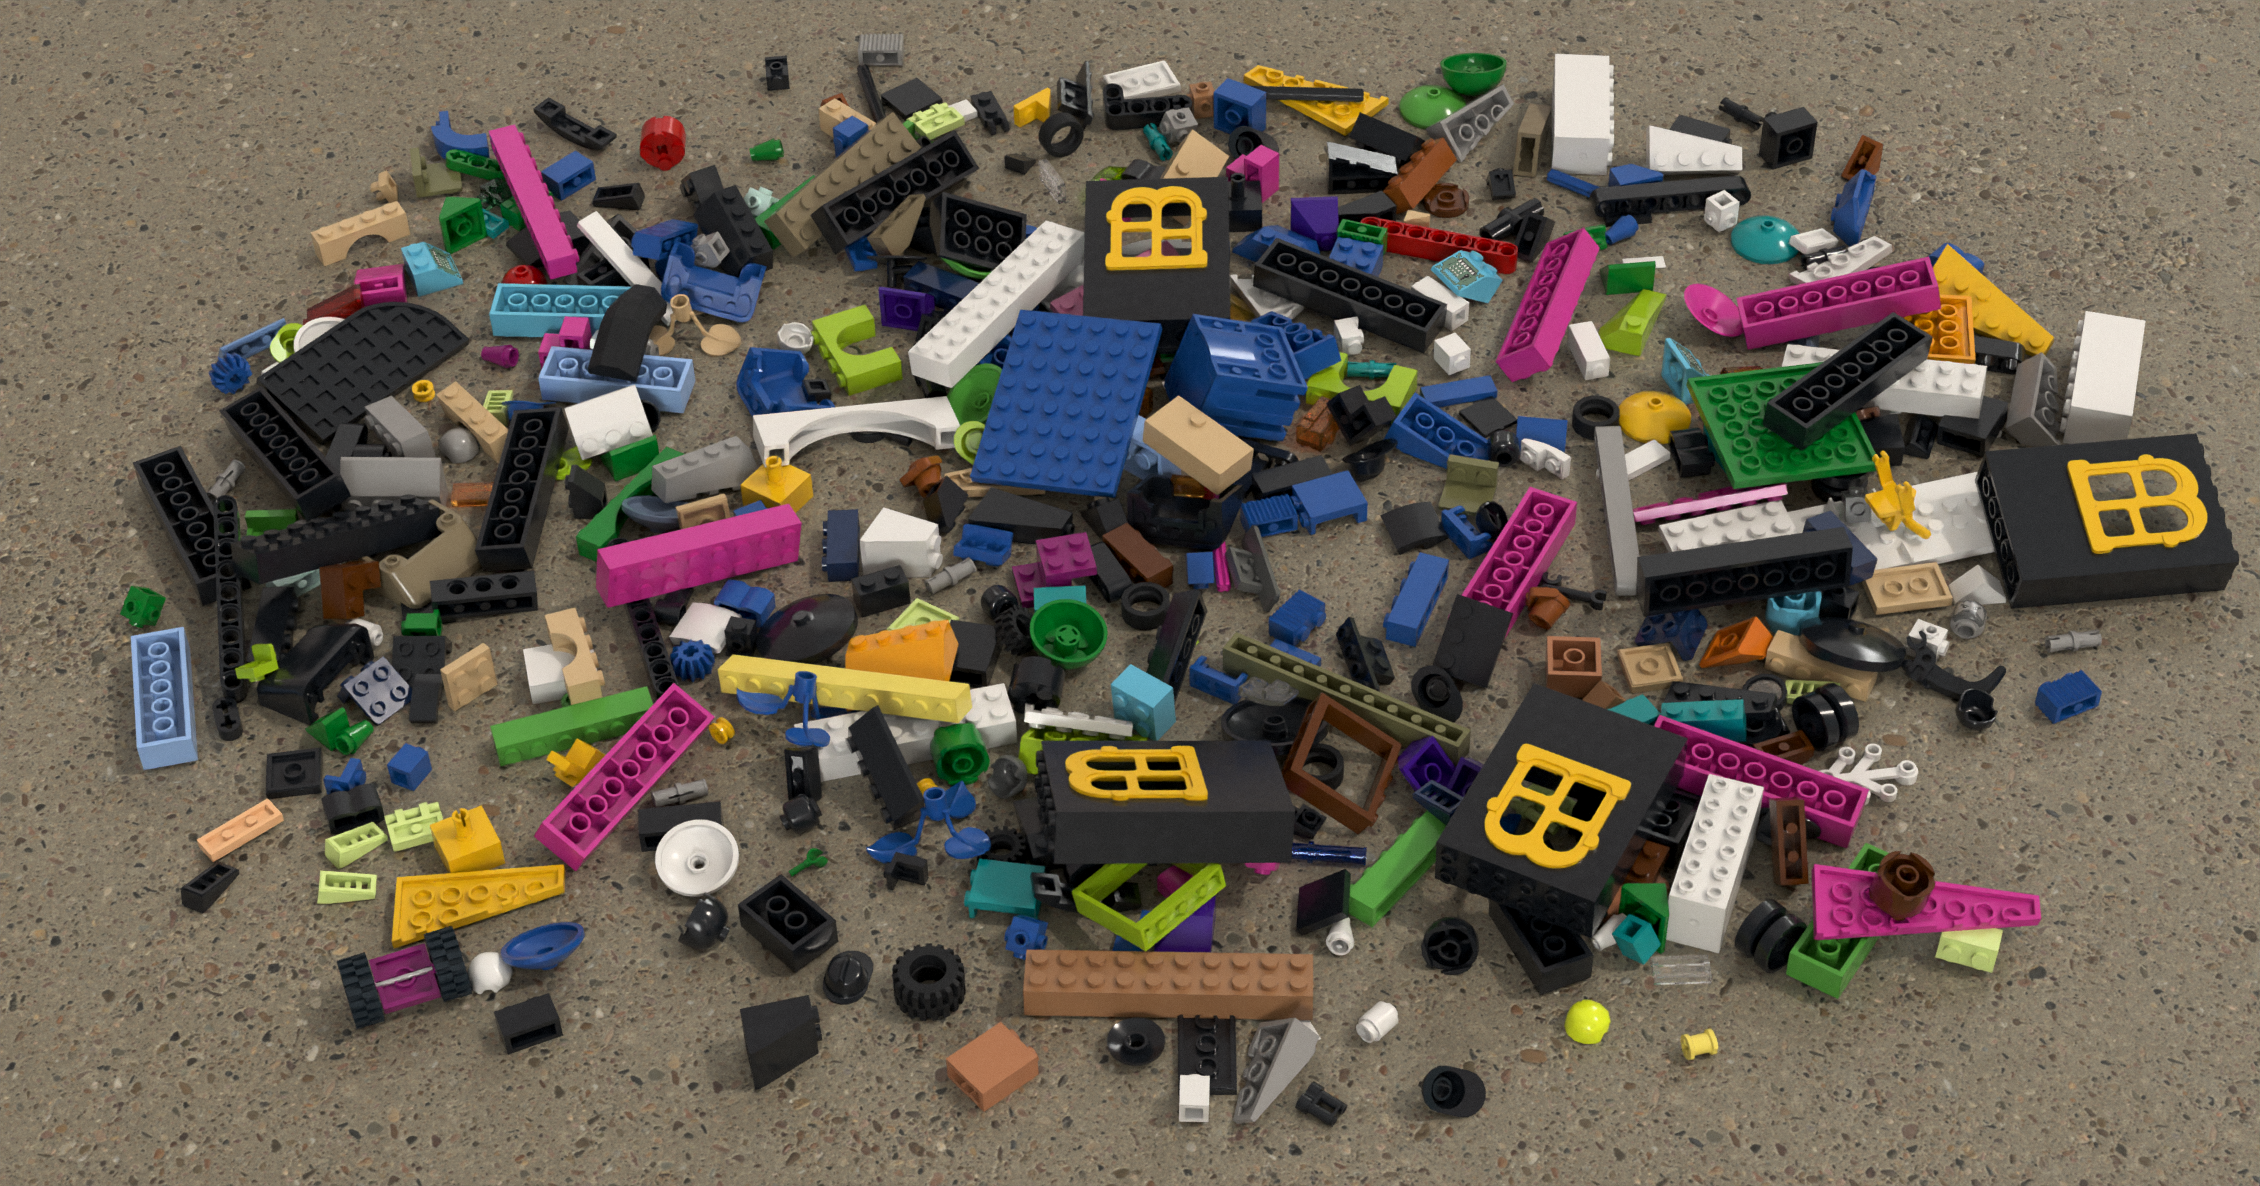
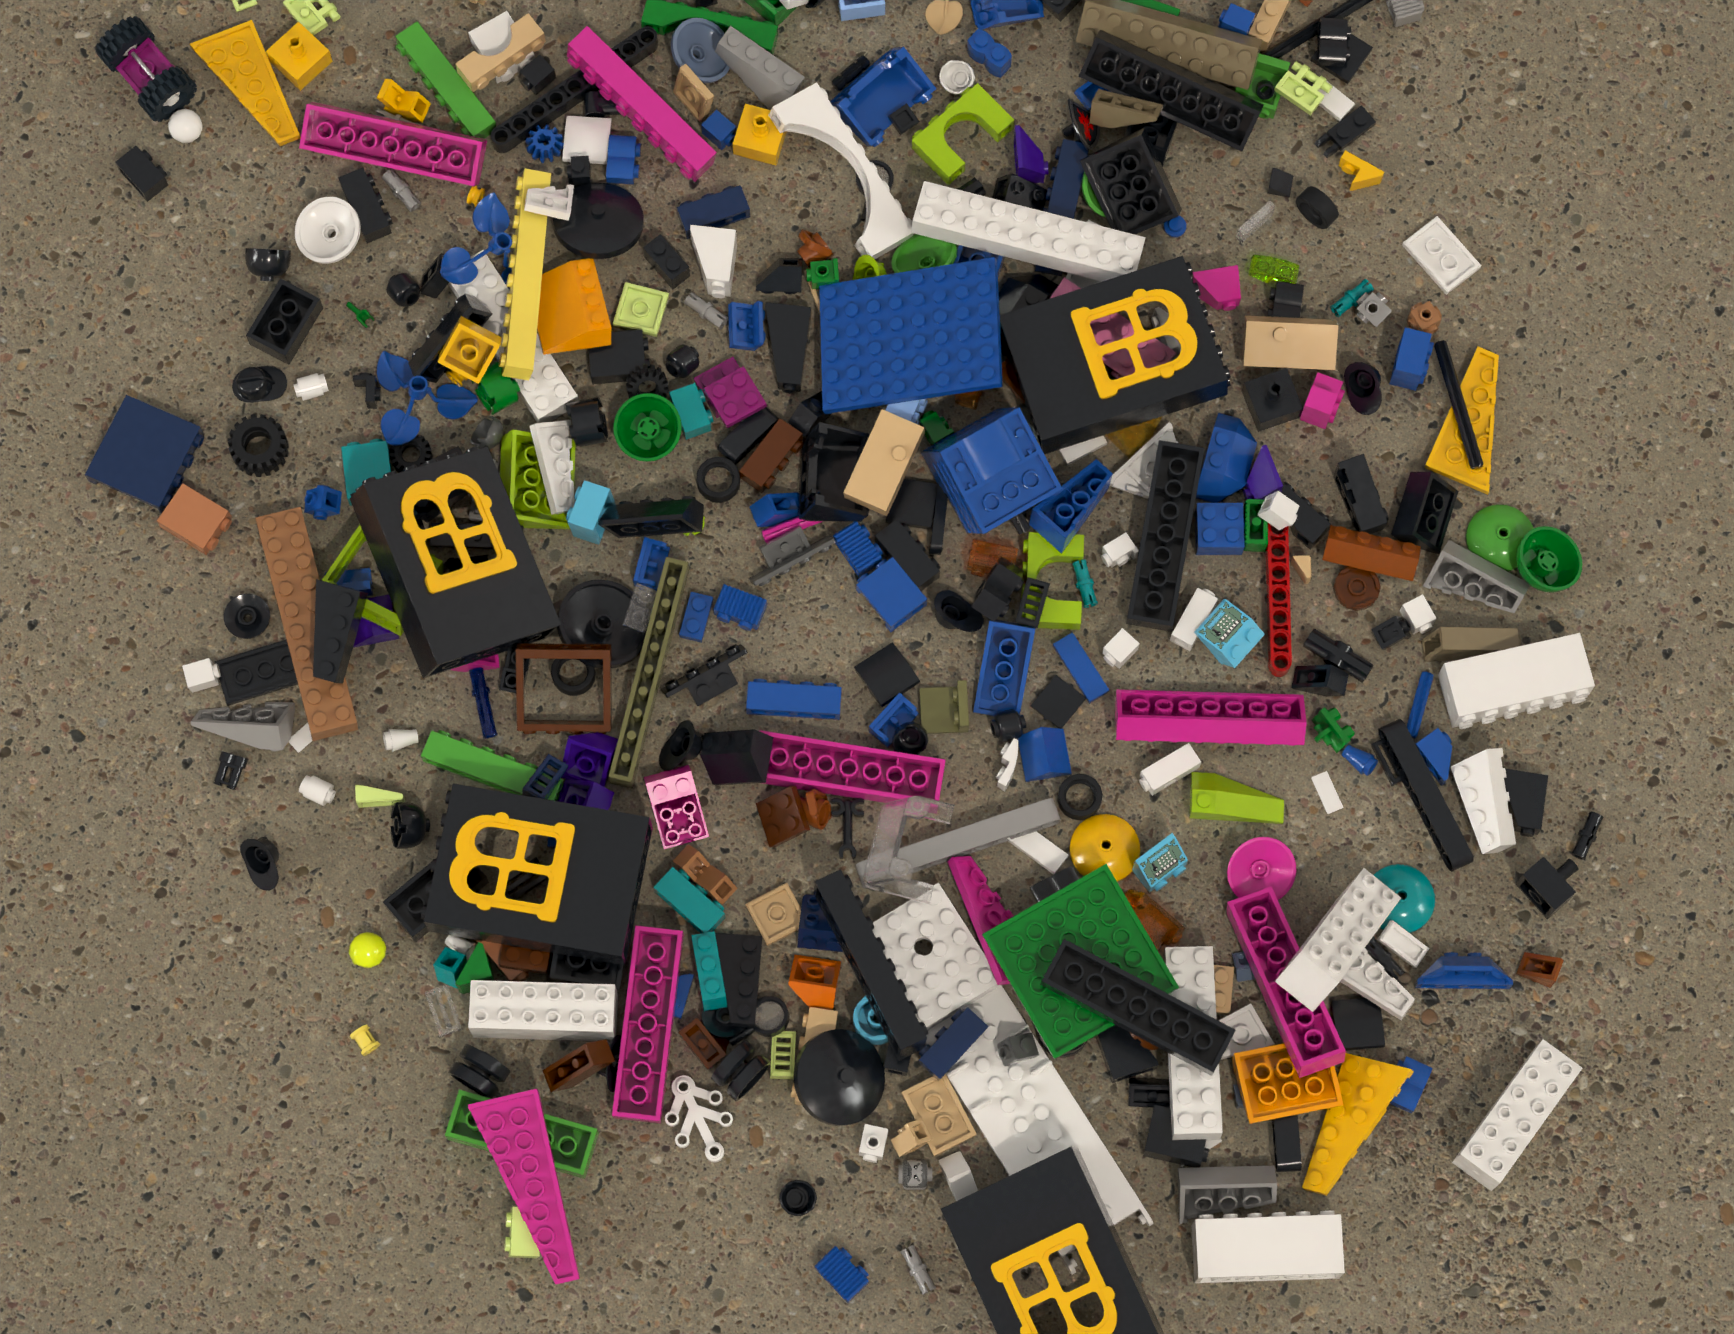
camera: 70 degrees right, 30 degrees up
(543, 946) = (211, 152): blue dish -> none
(610, 645) = (537, 75): none -> black brick
(743, 416) = (850, 73): none -> black axle
(772, 649) = (550, 201): none -> white wing
(780, 1037) = (166, 355): black slope -> none
(781, 310) = (985, 51): none -> blue brick
(877, 922) = (310, 386): none -> white brick
(885, 1095) = (145, 453): none -> dark blue panel
(901, 92) = (1332, 42): none -> black brick
(922, 725) = (469, 349): none -> yellow brick
(960, 466) = (829, 277): none -> green brick
(1076, 96) = (1392, 199): black bracket -> none
(1138, 112) = (1391, 274): black beam -> none
(1204, 920) = (336, 626): none -> black wedge
(1323, 902) = (422, 716): black tile -> none
(1359, 208) = (1278, 510): none -> white brick
(1377, 387) = (1039, 584): none -> black slope
(1402, 972) = (376, 797): none -> yellowish green slope
(1488, 160) = (1418, 615): none -> white brick
(1488, 710) = (676, 806): none -> dark pink slope
(1540, 621) = (783, 816): none -> reddish brown plate
(1573, 664) = (744, 849): nougat brick -> none
(1614, 540) = (883, 869): none -> clear windscreen
(1628, 277) = (1294, 780): green slope -> none
(1721, 211) = (1415, 840): white brick -> none
(1812, 245) = (1338, 940): none -> white brick
(1895, 501) = (1010, 1080): yellow piece -> none
(1902, 884) = (514, 1166): reddish brown brick -> none
(1930, 676) = (833, 1150): black piece -> none
(1931, 607) = (911, 1137): none -> tan brick
(2006, 197) = (1517, 1115): none -> white brick

